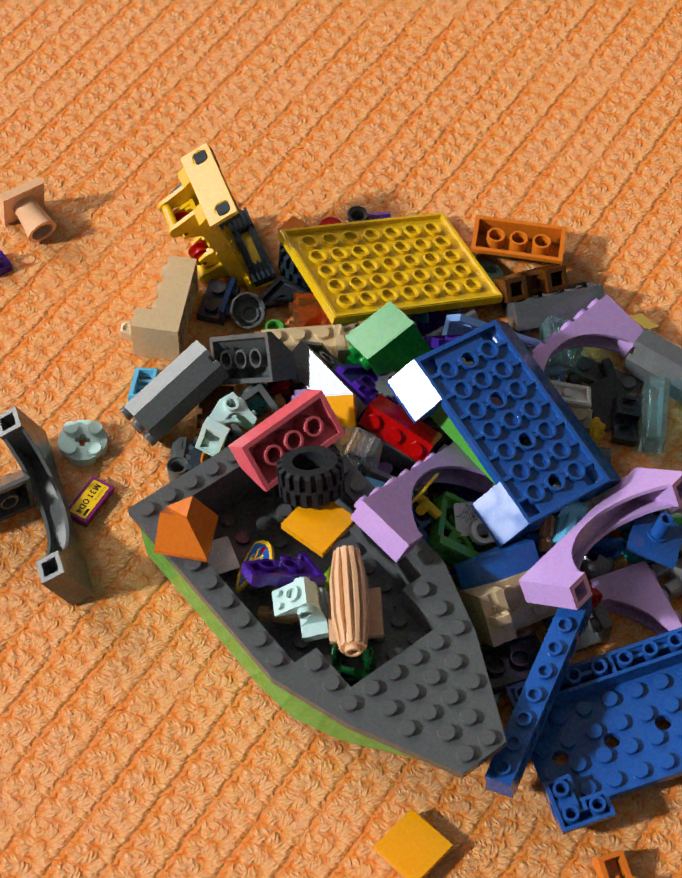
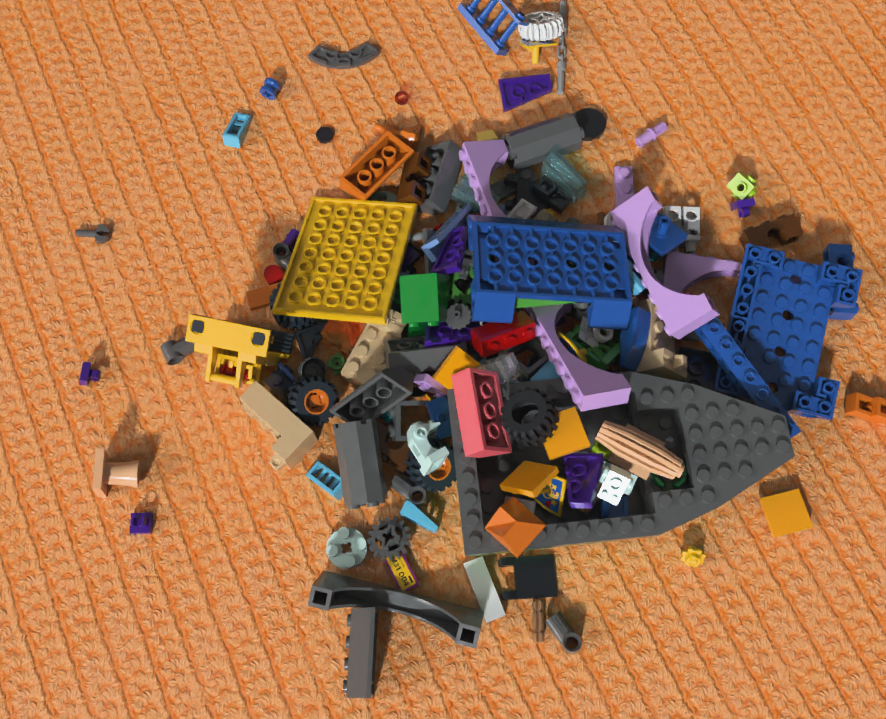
camera: 55 degrees left, 15 degrees up
(114, 140) = (87, 373): none -> dark purple tile
(115, 470) = (390, 529): none -> dark grey gear
(116, 653) = (538, 621): none -> medium nougat axle
(118, 682) = (563, 631): none -> dark grey piece
(119, 586) = (484, 589): none -> white tile
(157, 474) = (414, 514): none -> medium azure slope
(163, 625) = (532, 576): none -> black flag
(213, 316) = (312, 399): none -> black wheel
(253, 528) = (529, 479): none -> light orange tile
(262, 70) = (95, 233): none -> dark grey bar
(285, 636) = (609, 510): none -> blue tile
(290, 770) = (693, 556): none -> yellow plant
(458, 114) = (230, 137): none -> medium azure slope
(523, 188) = (324, 135): none -> black piece
(534, 113) = (270, 88): none -> blue wheel
(578, 253) = (408, 135): none -> orange animal
(620, 223) = (402, 101): none -> clear red hinge
(621, 153) = (351, 59): none -> dark grey tile

